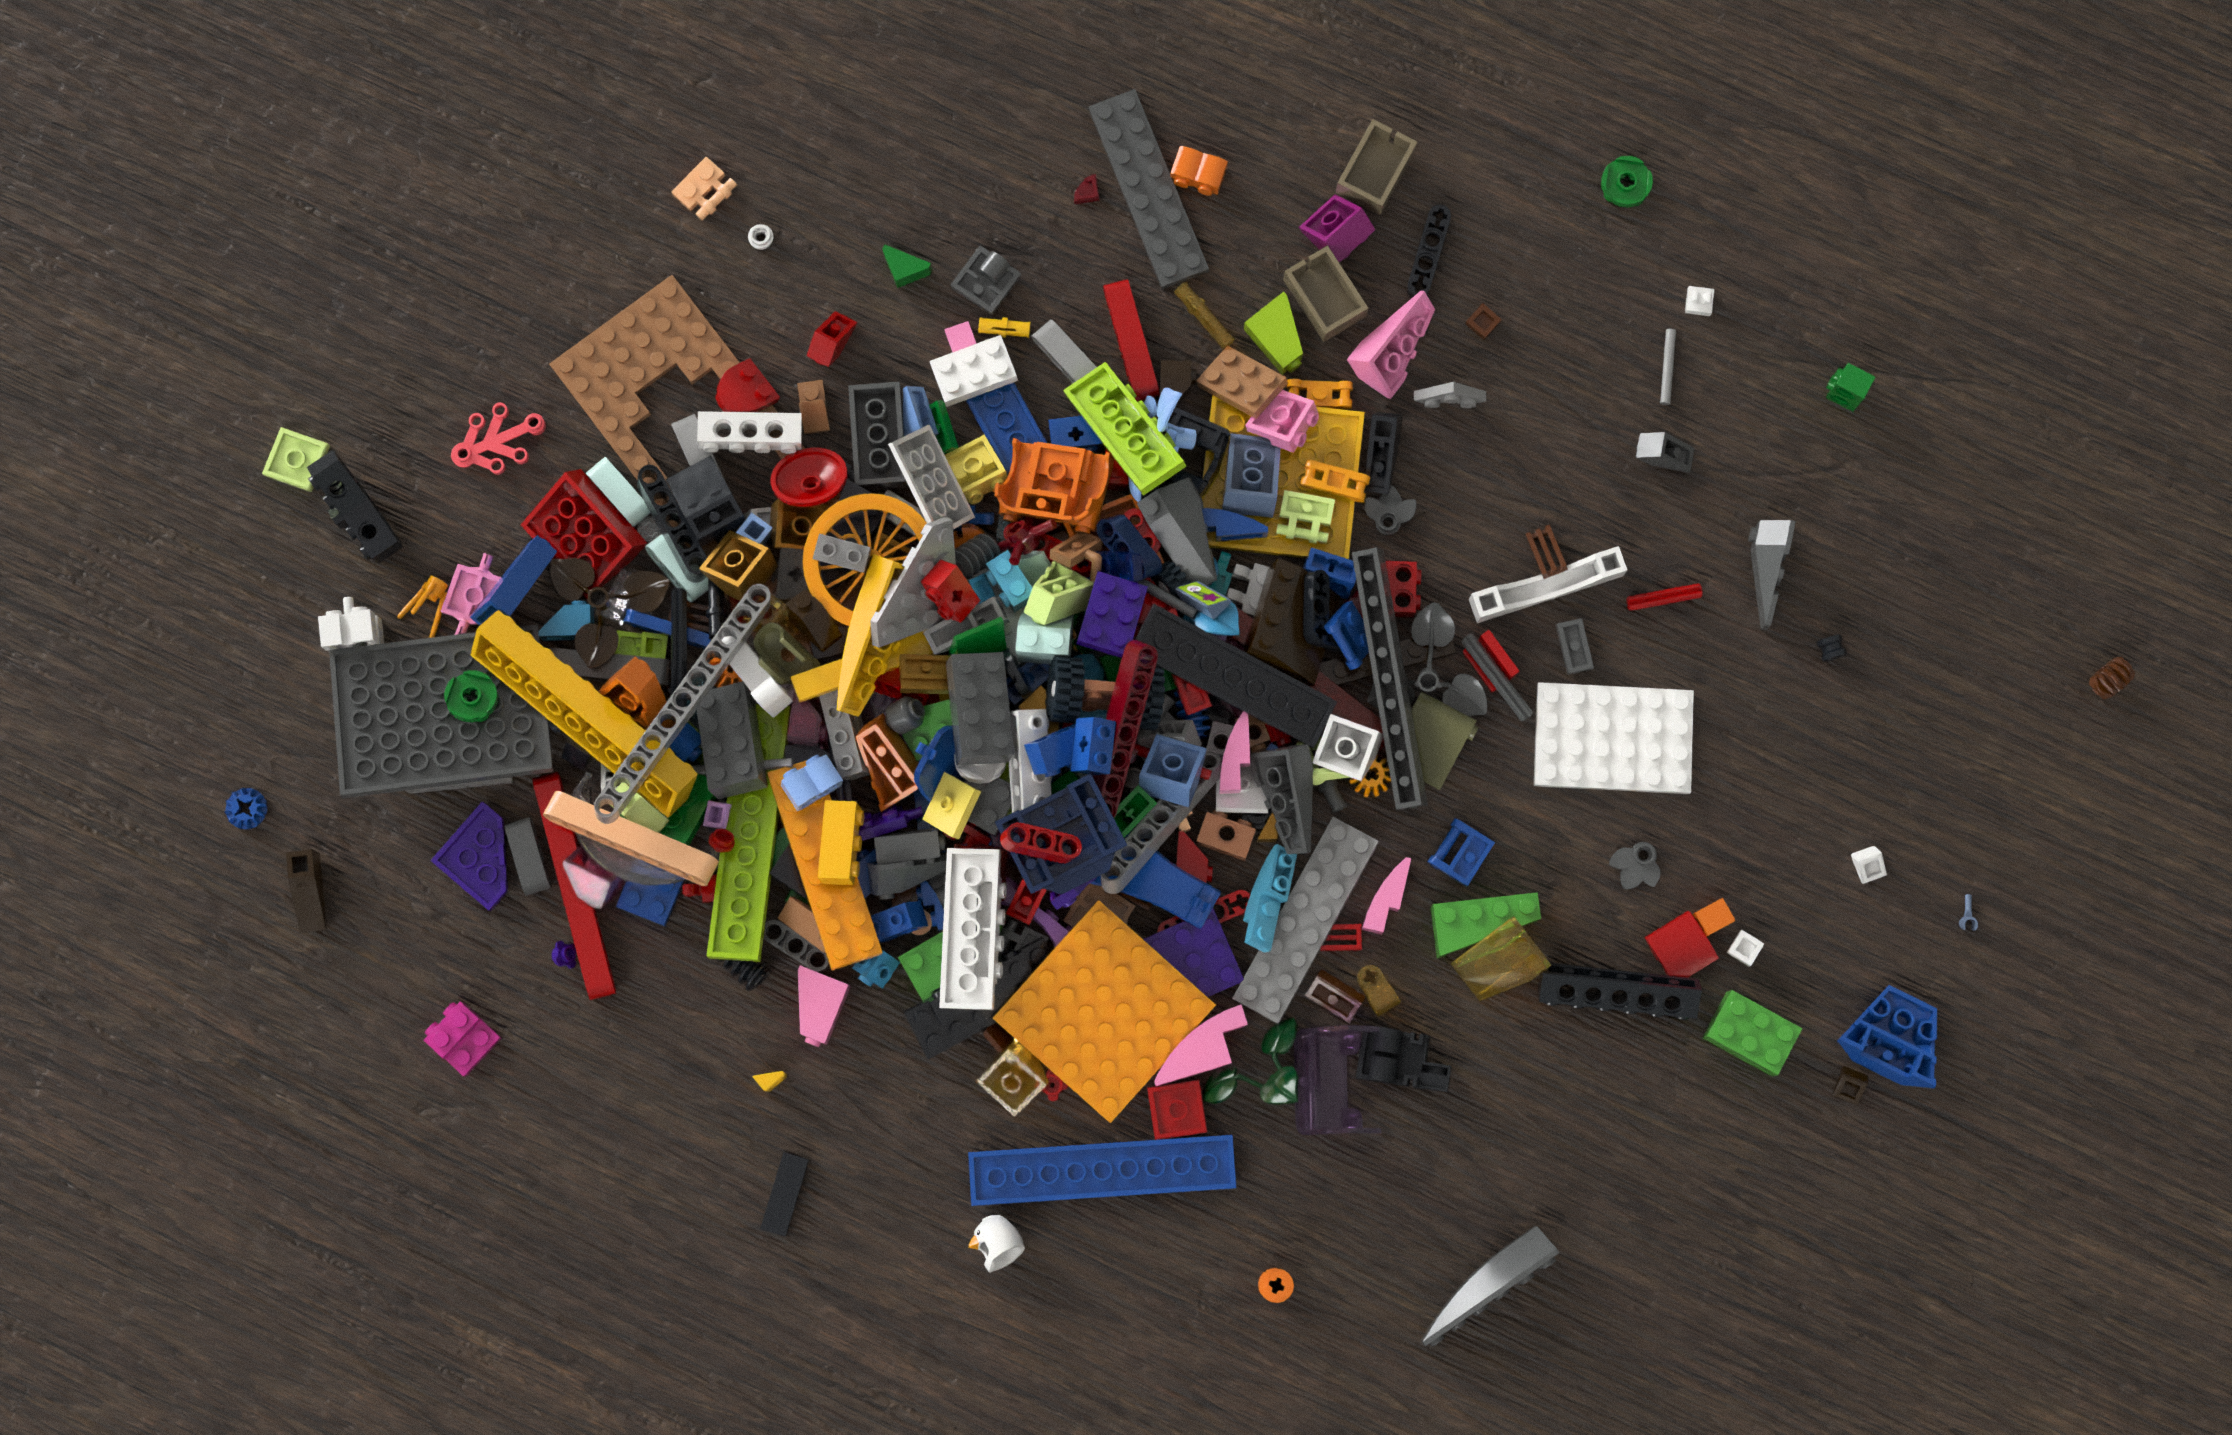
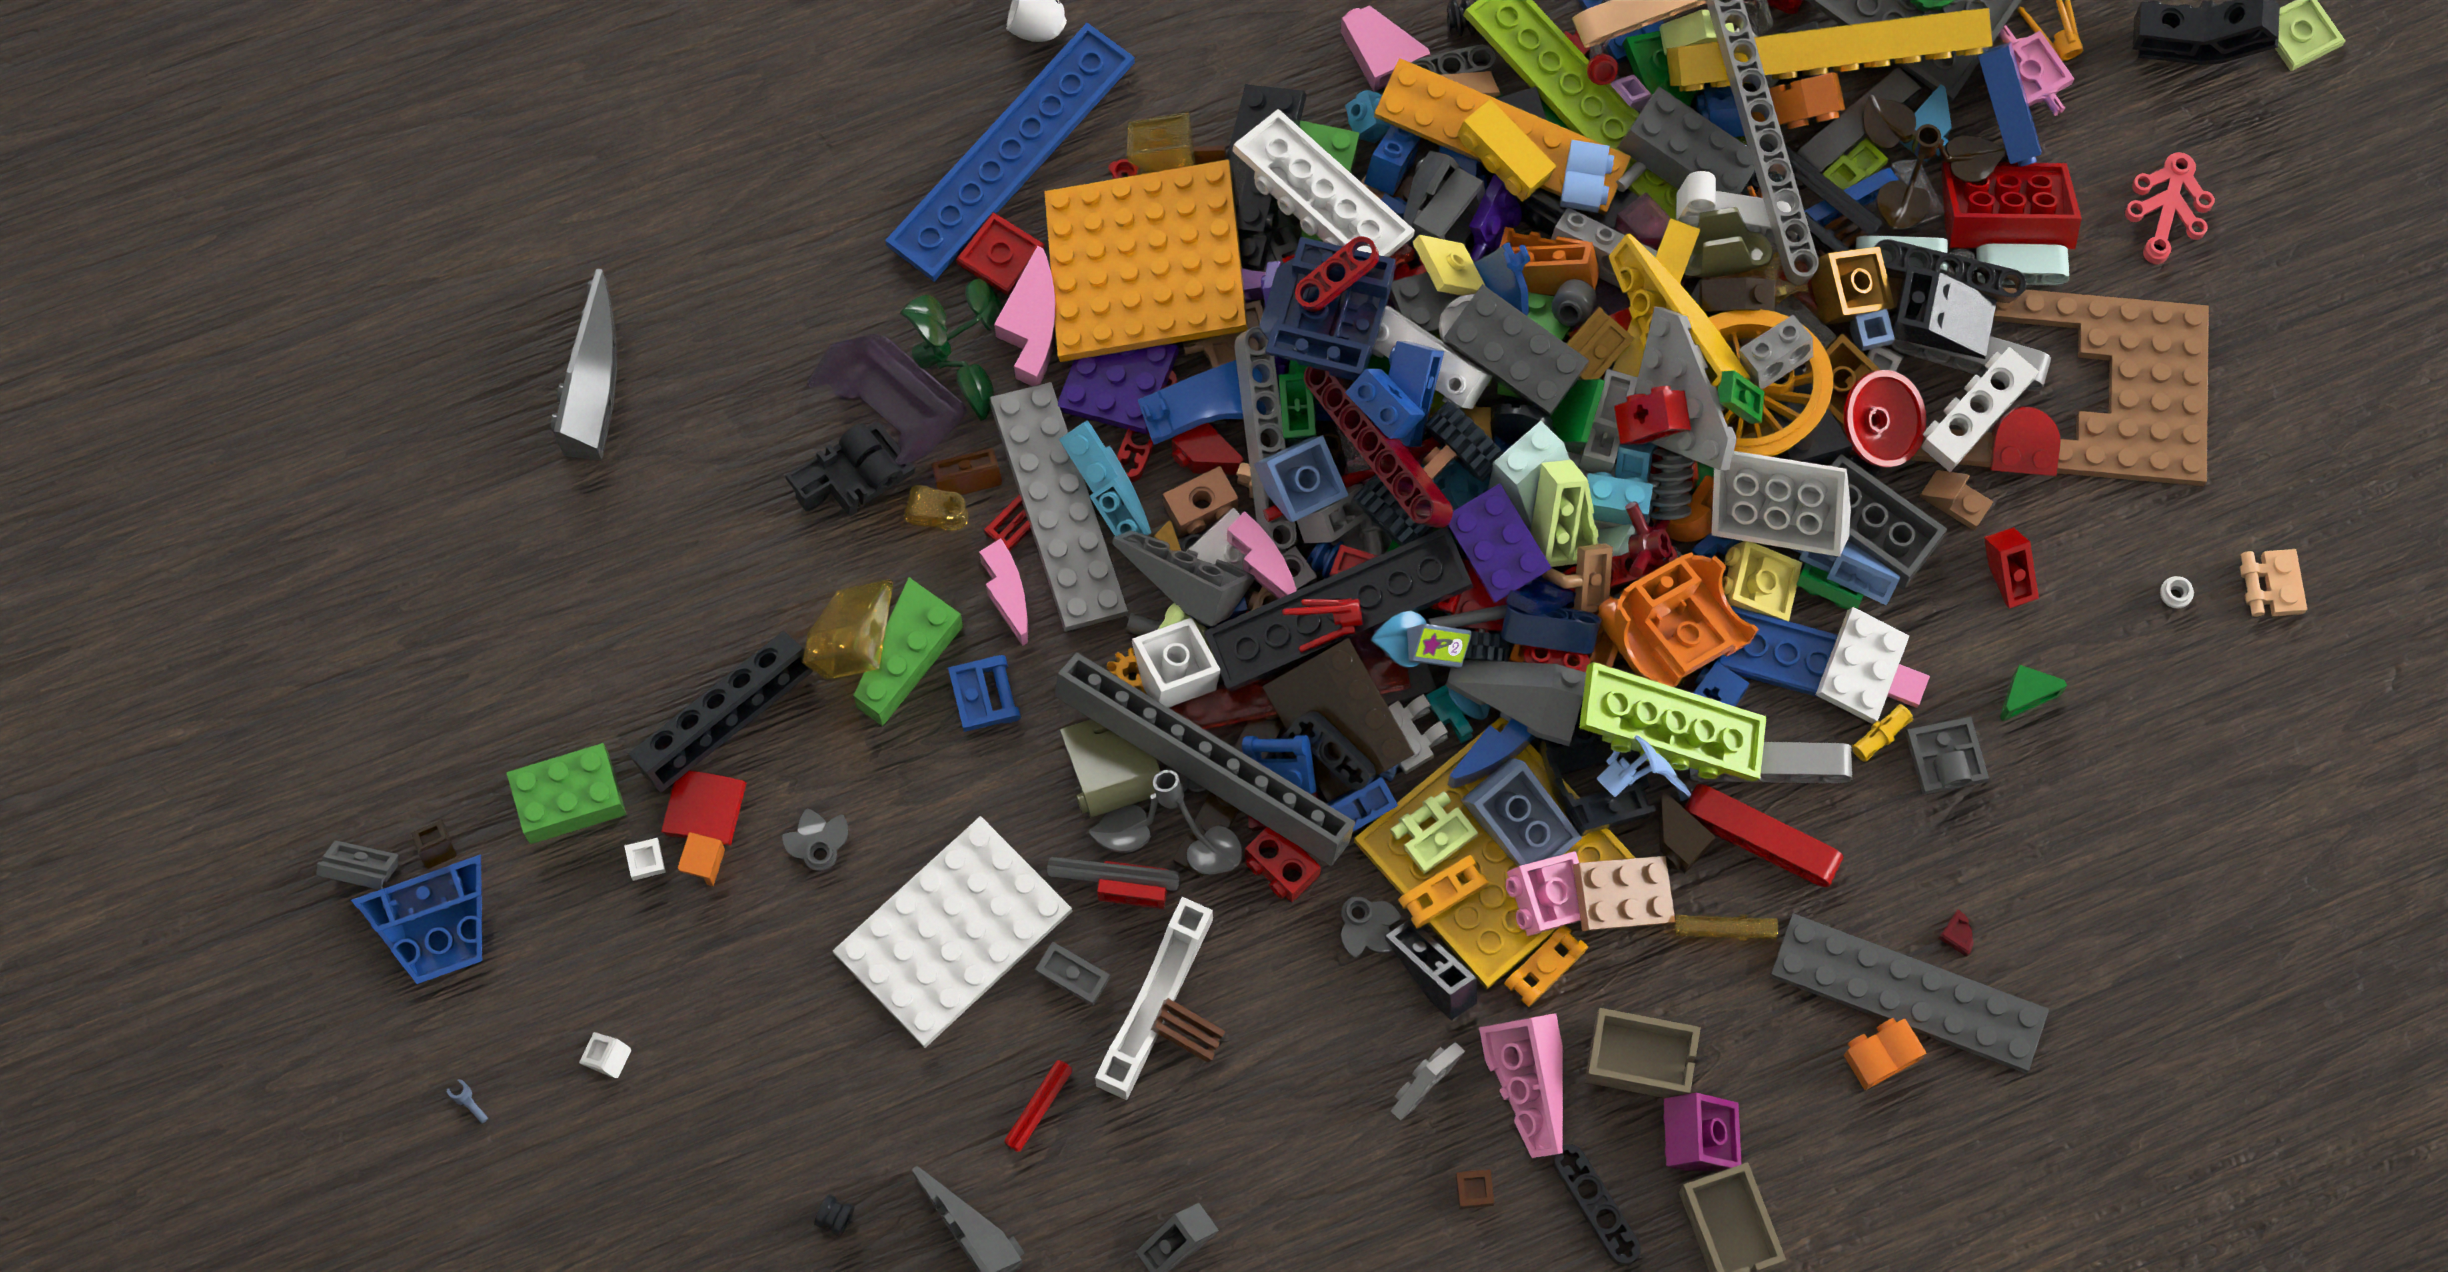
camera: 130 degrees right, 10 degrees down
(894, 545) = (1741, 396): none -> green plate
(1238, 662) = (1345, 613): none -> red plant
(1276, 334) = (1643, 976): lime slope -> none
(1279, 1295) = (771, 195): orange piece -> none
(1908, 1111) = (357, 865): none -> dark grey plate

